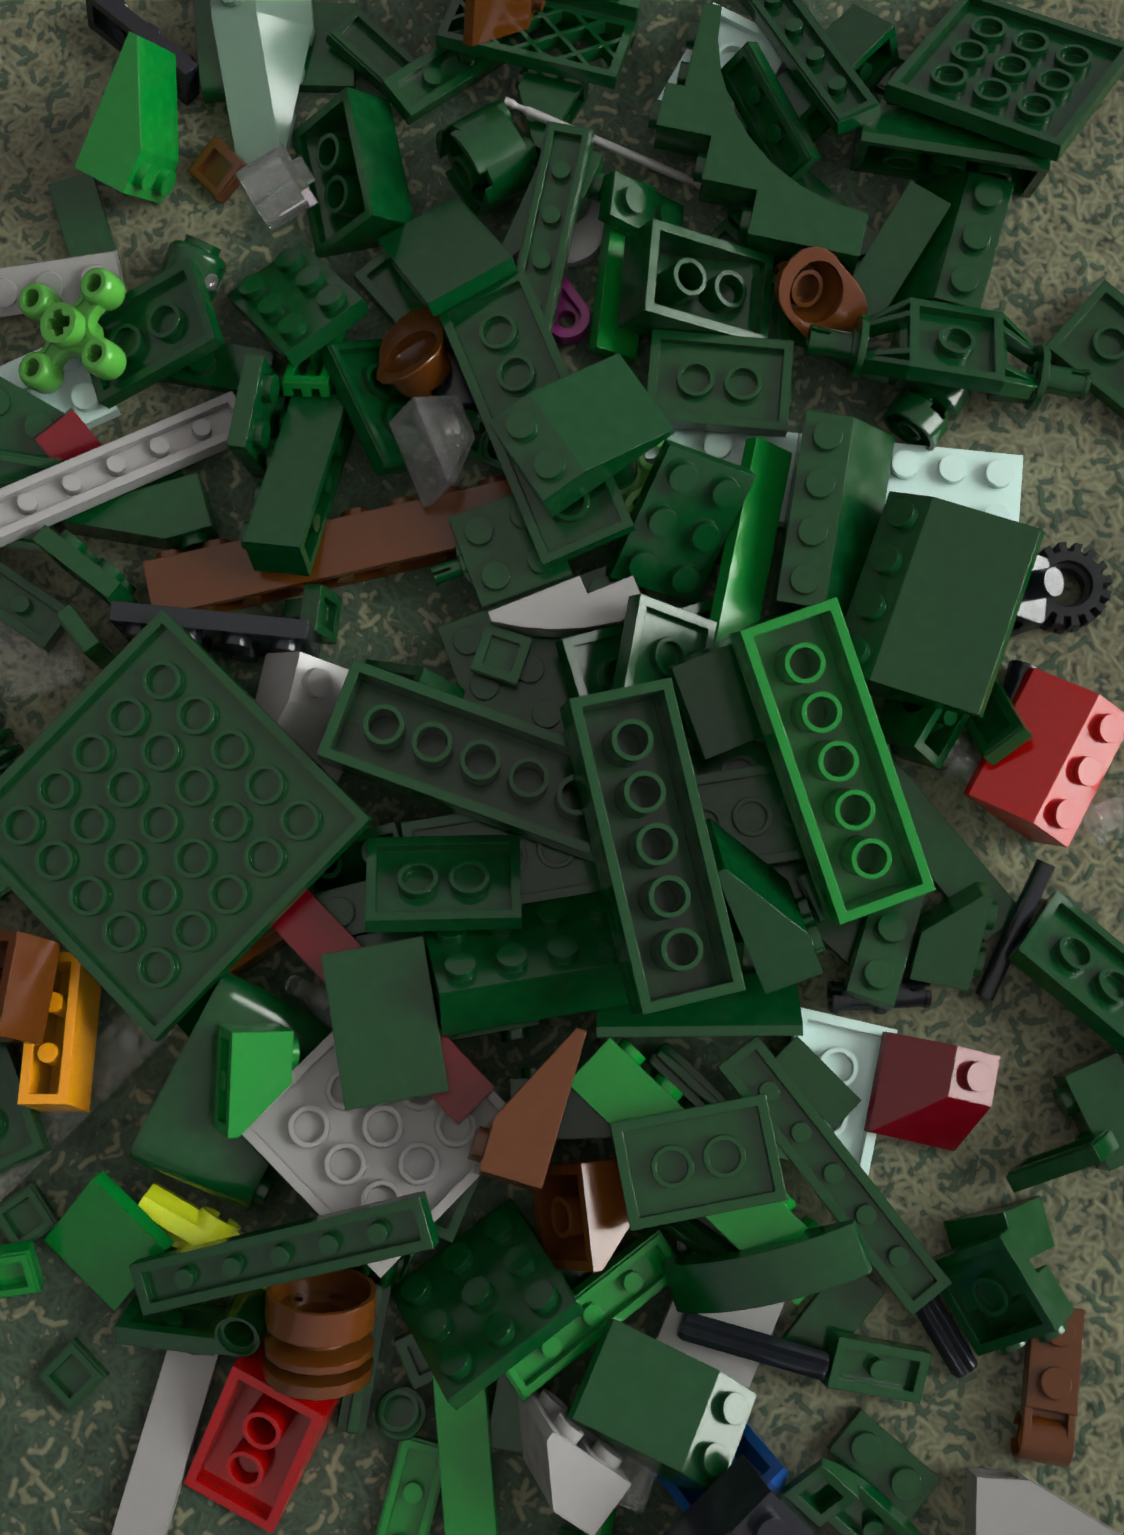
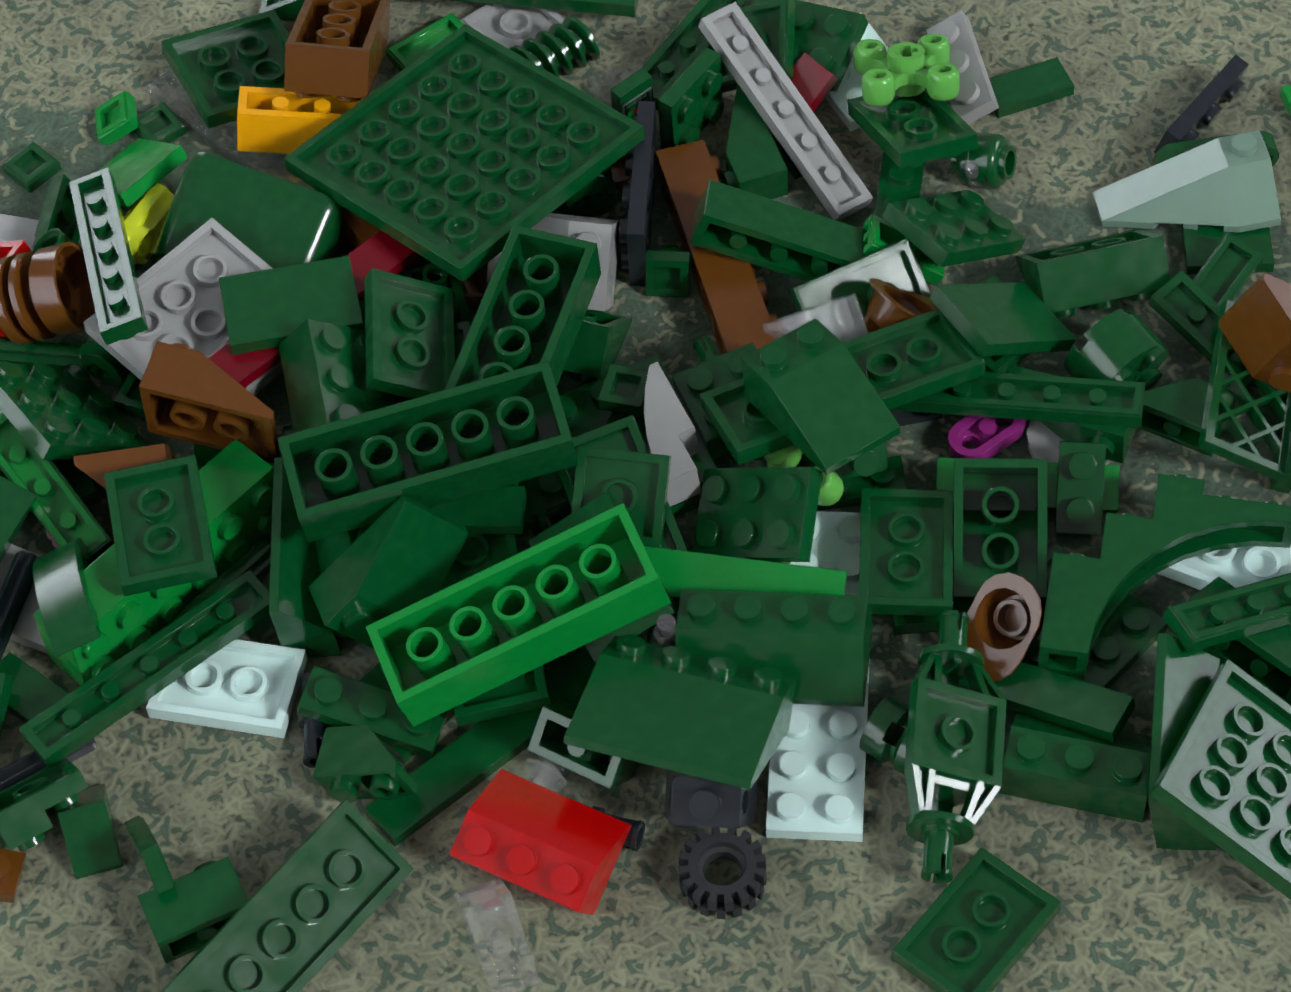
camera: 90 degrees right, 25 degrees down
(136, 124) = (1105, 93): green slope -> none
(217, 169) = (1089, 175): reddish brown tile -> none
(251, 1072) = (258, 220): green slope -> none
(256, 414) = (842, 194): dark green plate -> none
(278, 186) = (1070, 210): clear brick -> none
(608, 145) = (1152, 436): light grey piece -> none
(768, 112) = (1193, 579): dark green tile -> none
(818, 1082) = (235, 662): dark green sticker -> none
(929, 1090) = (224, 752): dark red slope -> none
(1000, 728) = (573, 789): dark green tile -> none
(1014, 929) = (390, 831): black bar -> none

